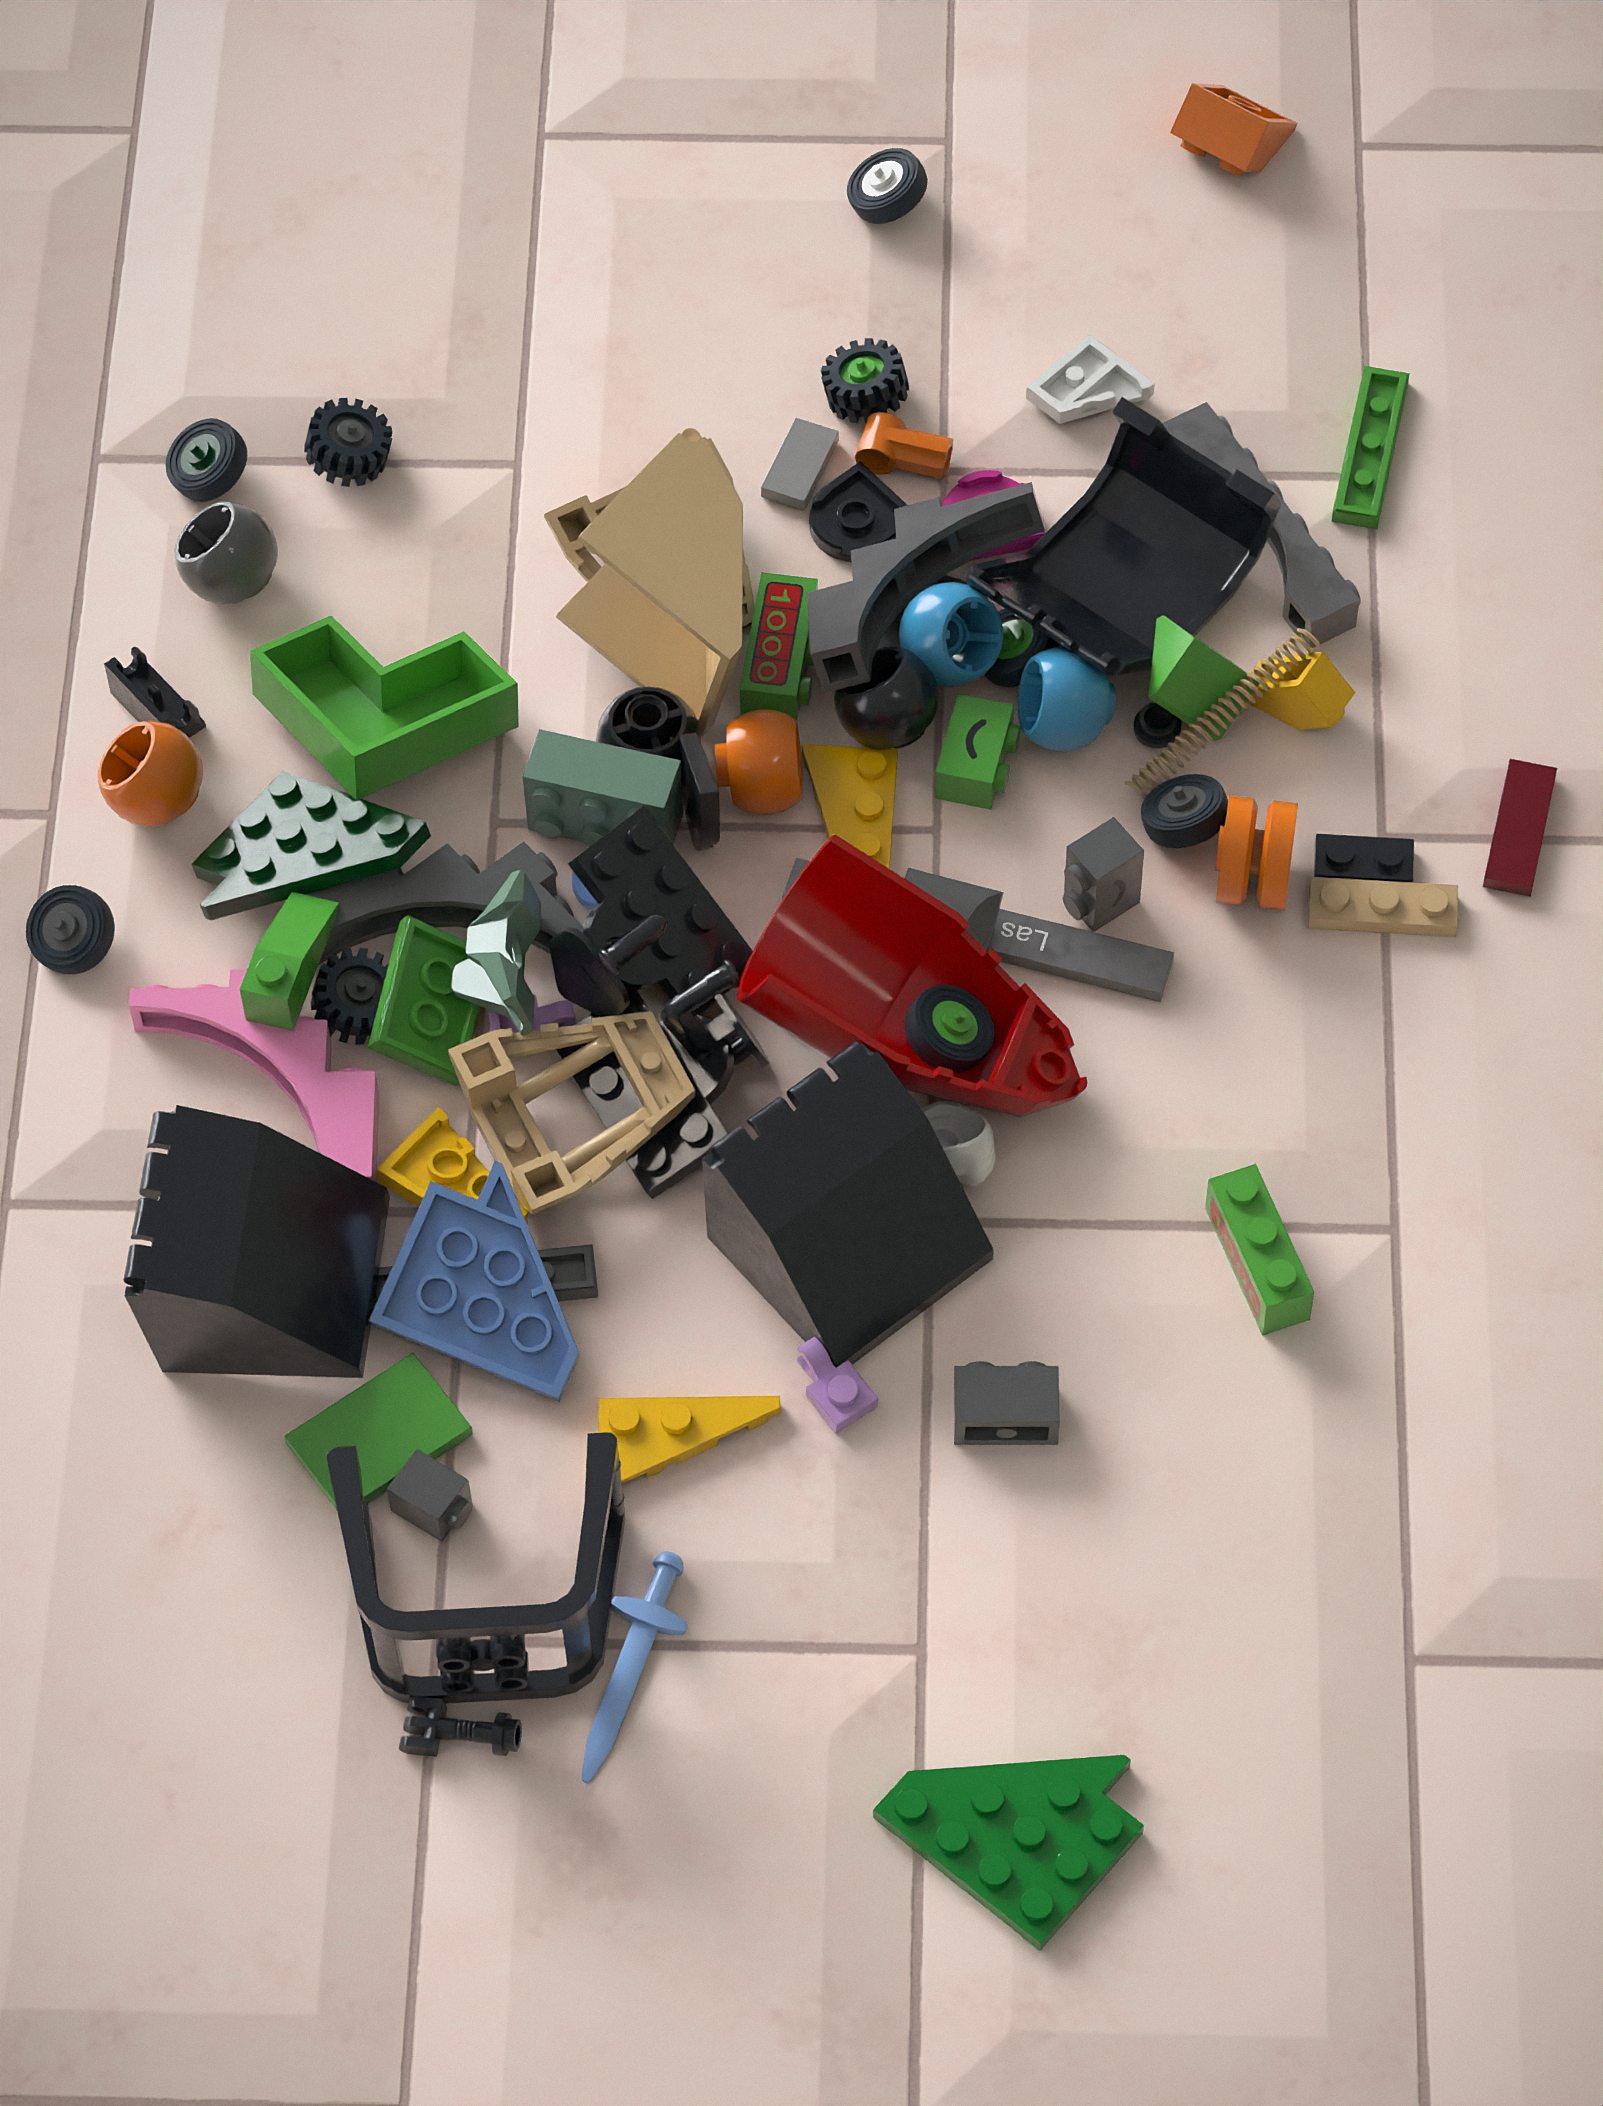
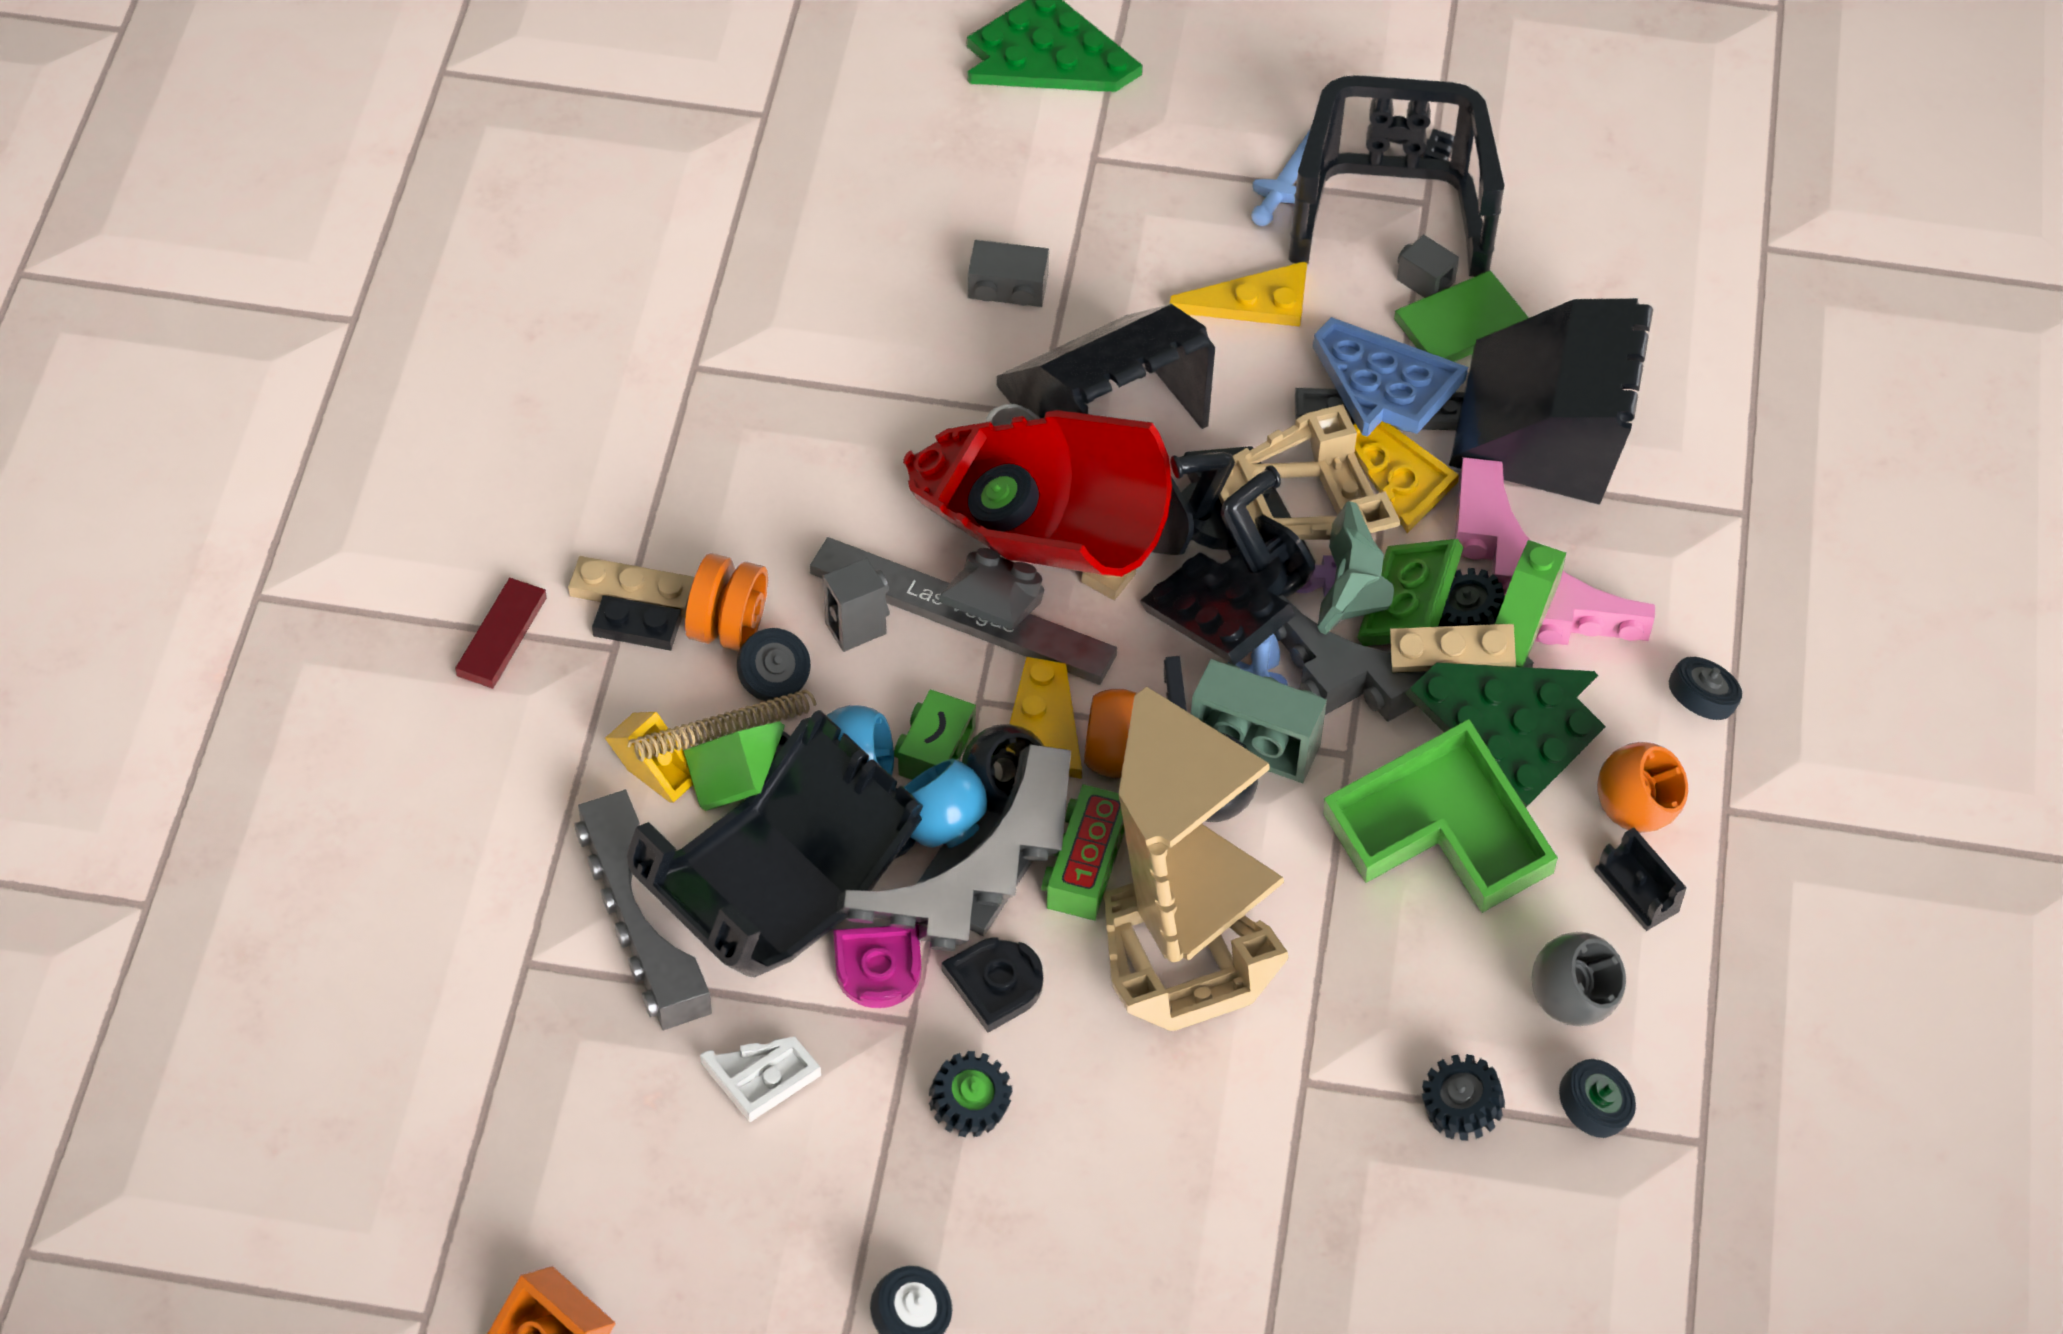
camera: 175 degrees left, 5 degrees down
(376, 888) = (1473, 644): none -> tan plate
(800, 464) = (1042, 1036): light grey tile -> none
(836, 1392) = (1123, 300): lavender plate -> none
(891, 445) = (945, 1027): orange piece -> none
(1259, 1249) = (801, 344): bright green brick -> none
(1370, 447) = (516, 985): bright green tile -> none

